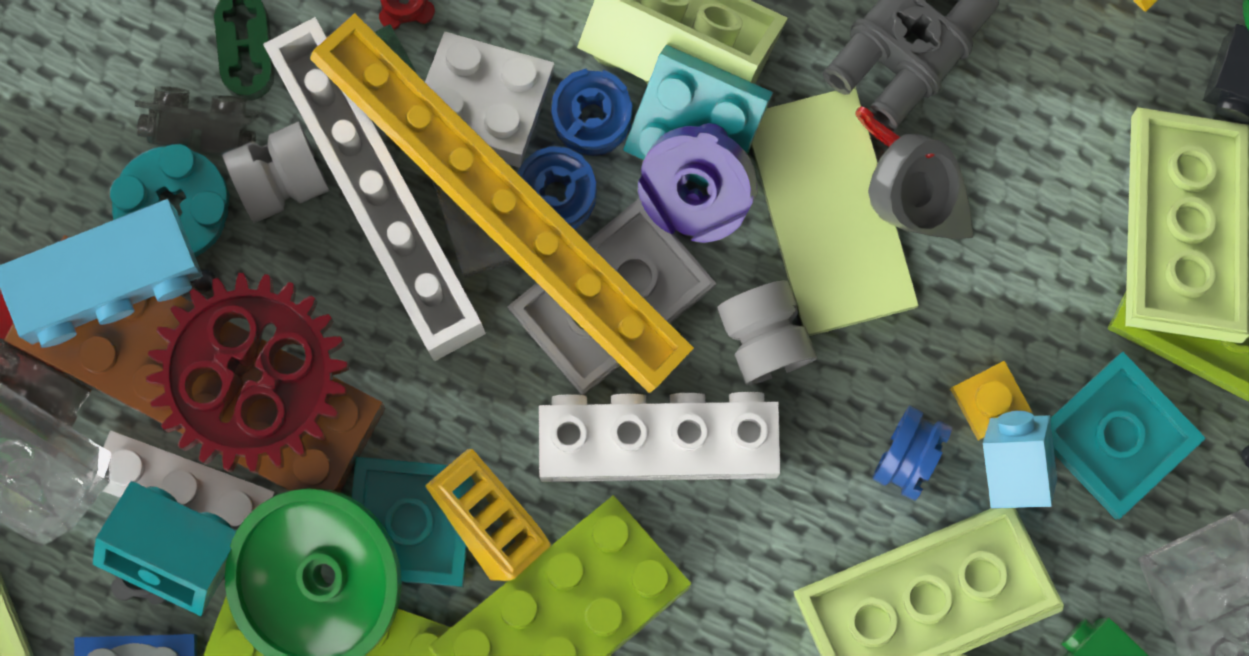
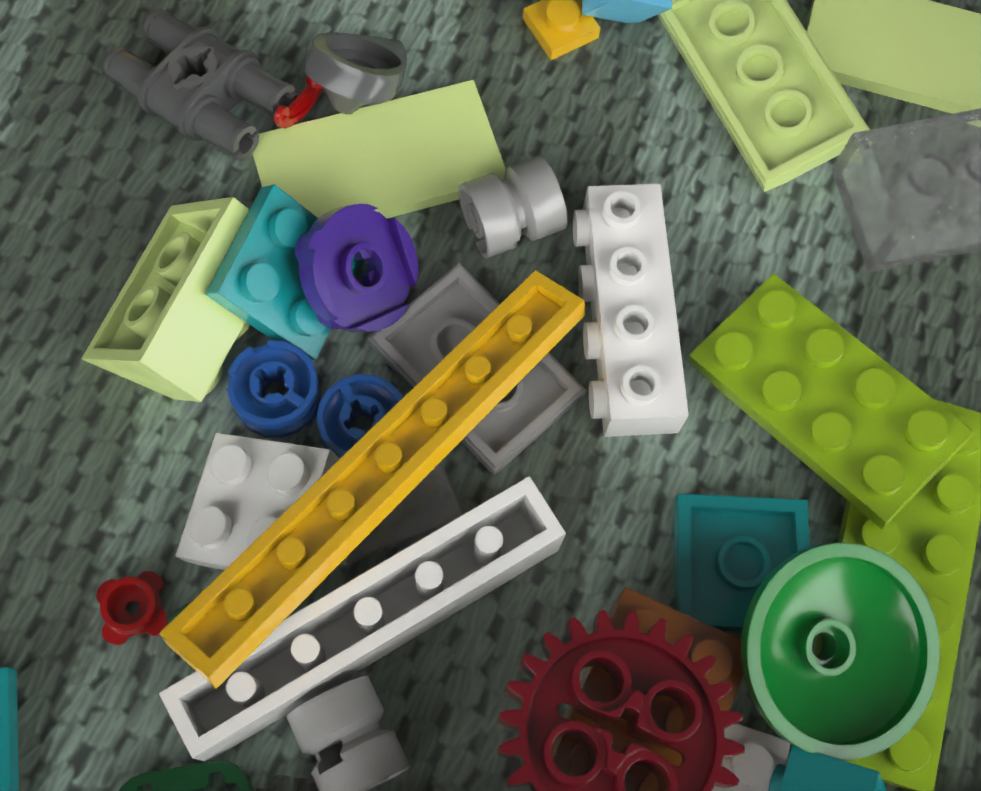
camera: 100 degrees left, 10 degrees down
(517, 523) = (755, 440): yellow slope -> none
(913, 453) = (624, 75): blue wheel -> none

